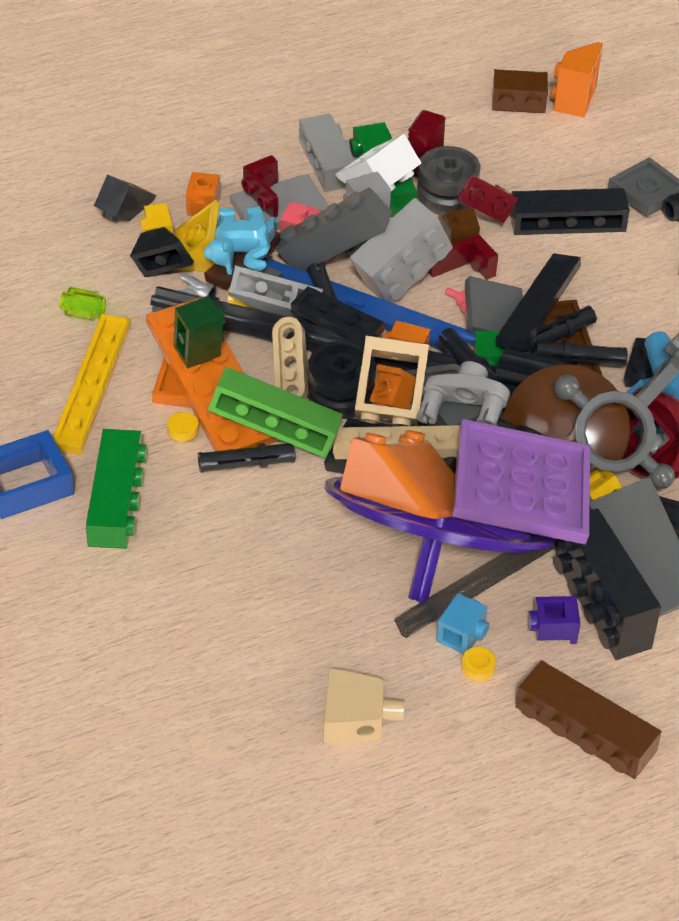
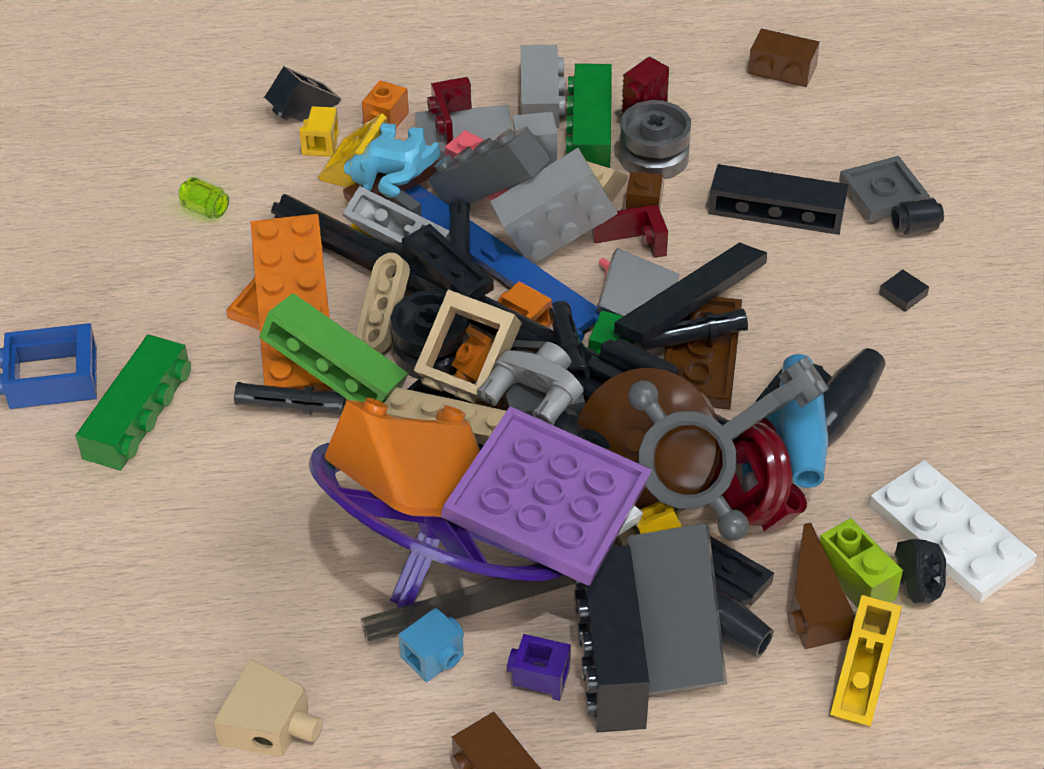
camera: 20 degrees right, 0 degrees up
(91, 384) = (172, 285): yellow tile -> none
(159, 252) = (304, 158): black slope -> none
(182, 426) = (243, 350): yellow tile -> none
(198, 287) = (331, 206): flat silver piece -> none
(198, 331) = (282, 248): dark green brick -> none
(391, 159) = (582, 108): white slope -> none
(478, 664) = (432, 696): yellow tile -> none
(487, 198) = (682, 166): dark red bracket -> none
(577, 79) = (851, 54): orange slope -> none
(582, 353) = (708, 360): black pin -> none

